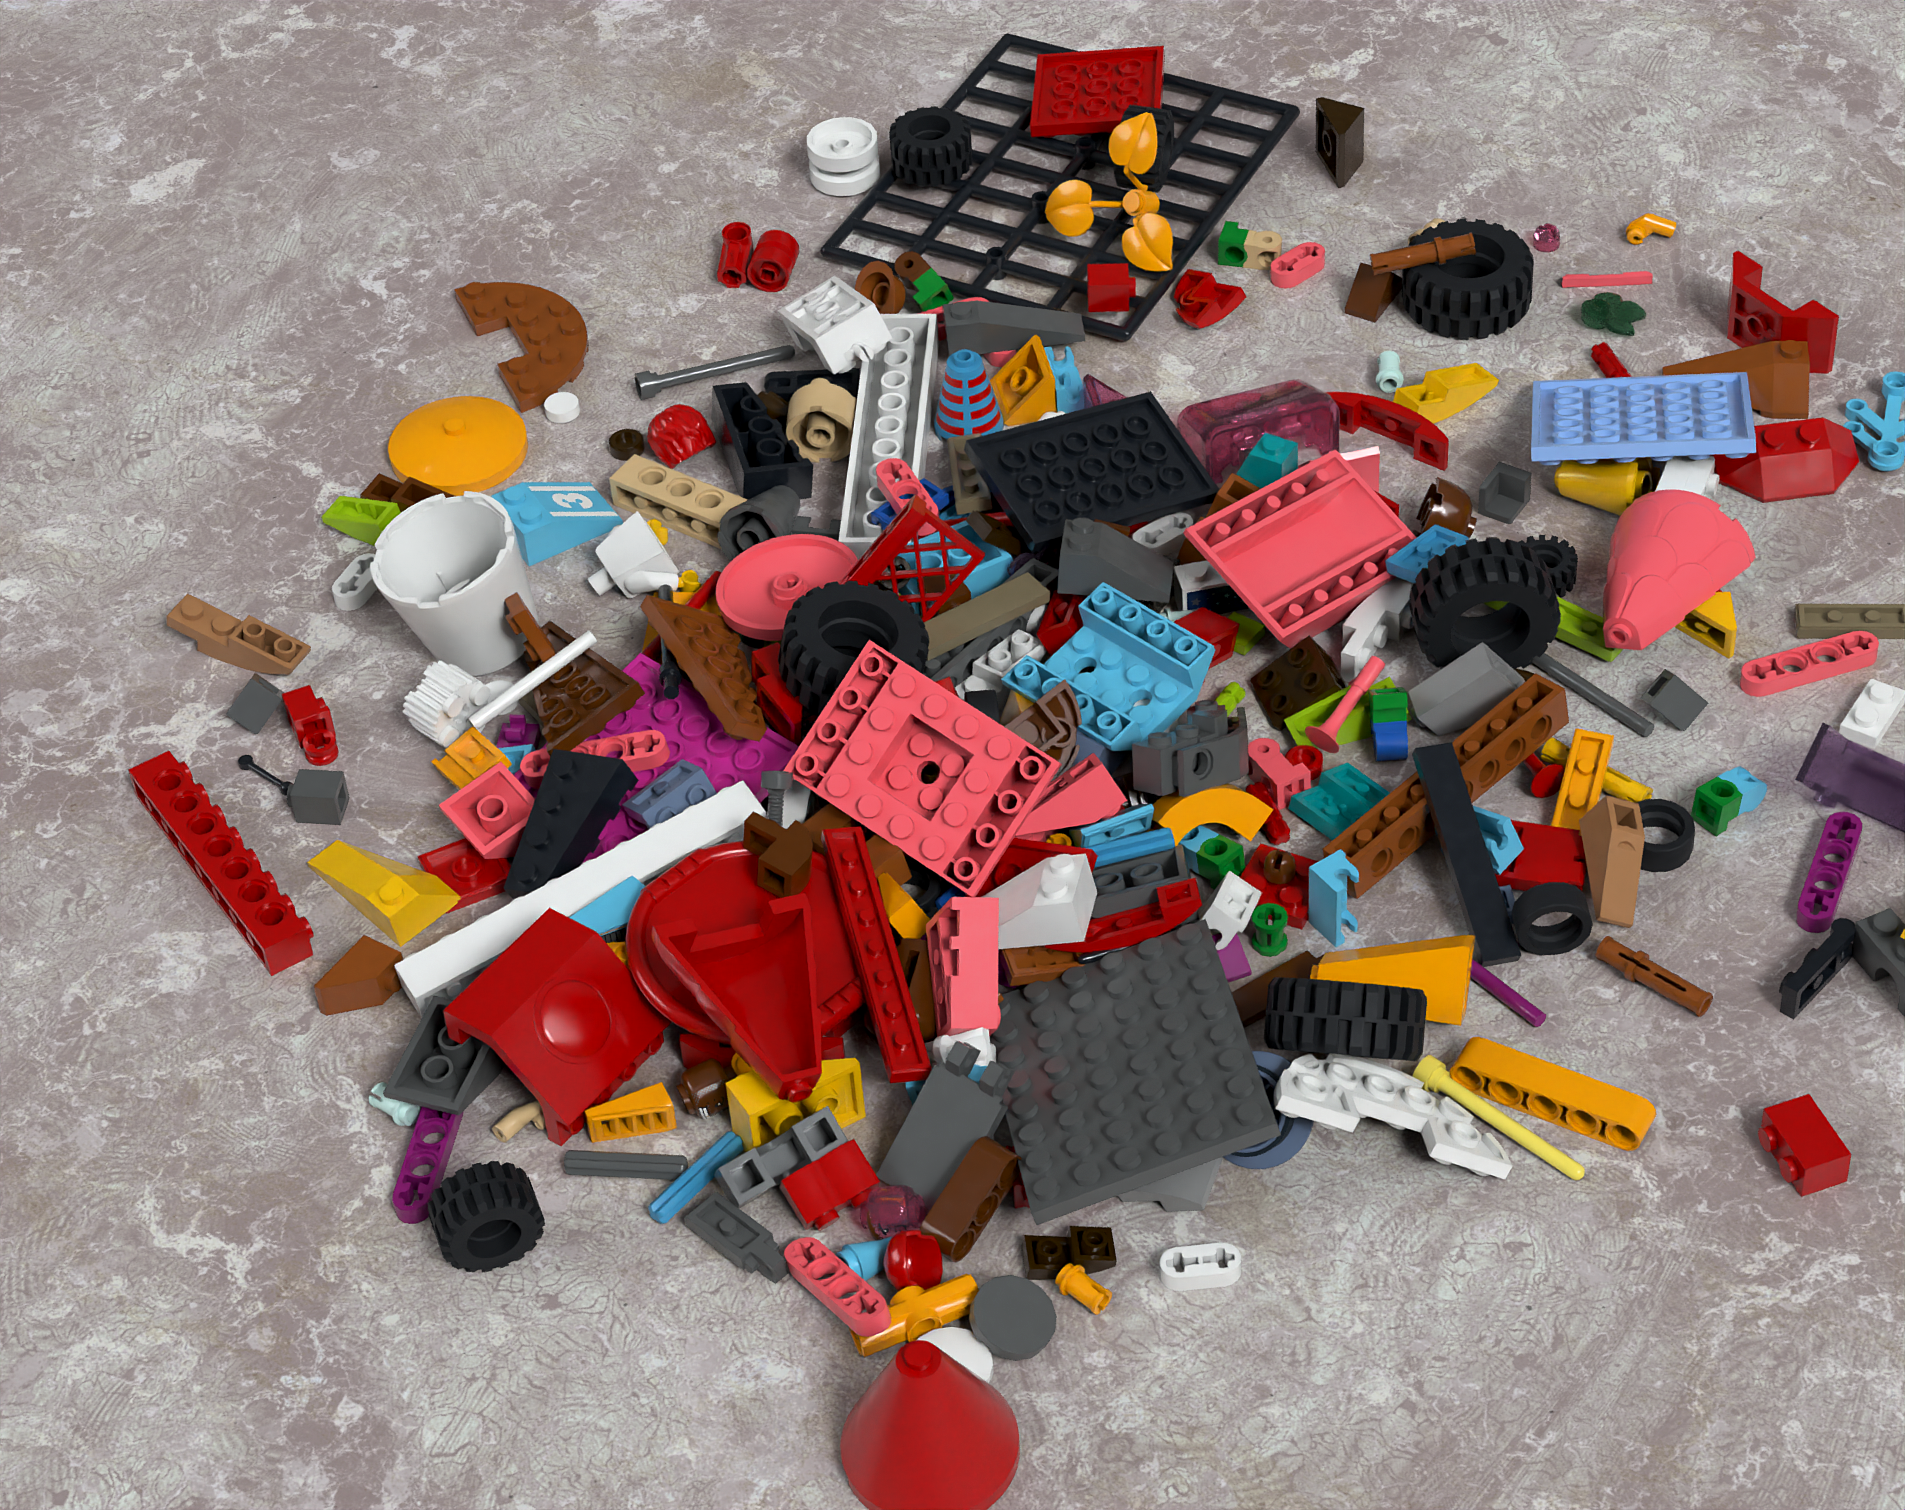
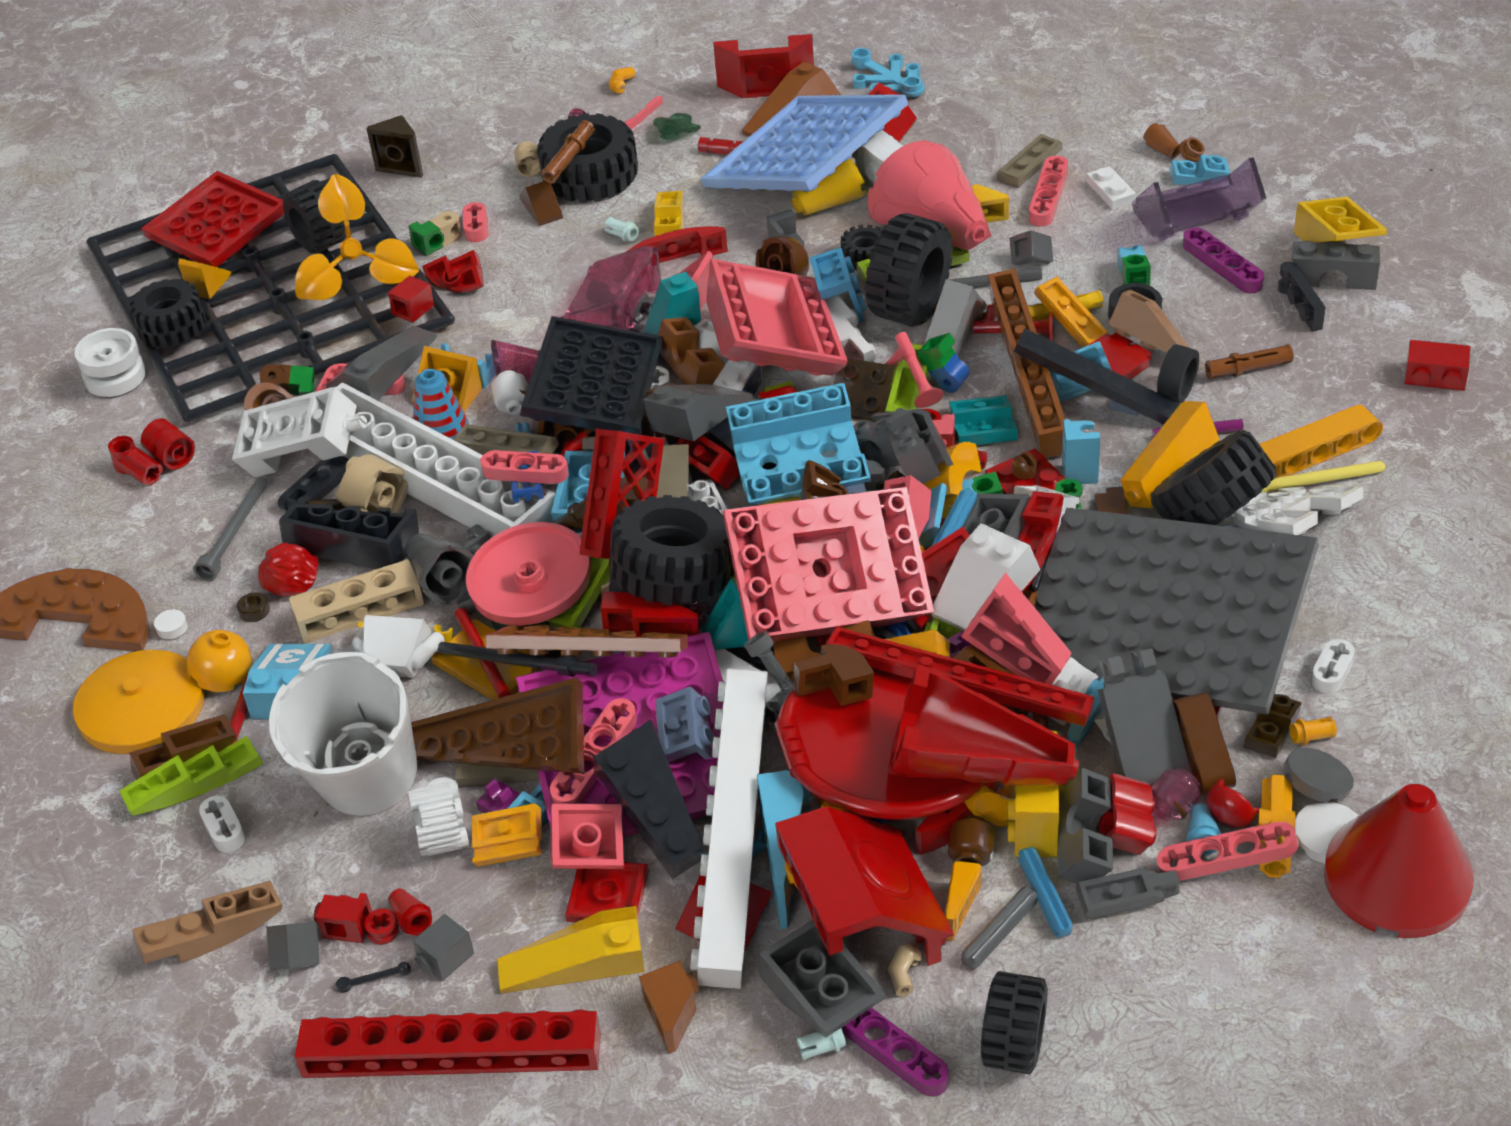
camera: 55 degrees left, 0 degrees up
(345, 752) = (410, 912): none -> red cone
(523, 621) = (440, 722): dark orange plate -> none
(531, 456) = (219, 660): none -> light orange cylinder
(532, 680) = (472, 753): white bar -> none
(1009, 136) = (204, 277): none -> light orange slope

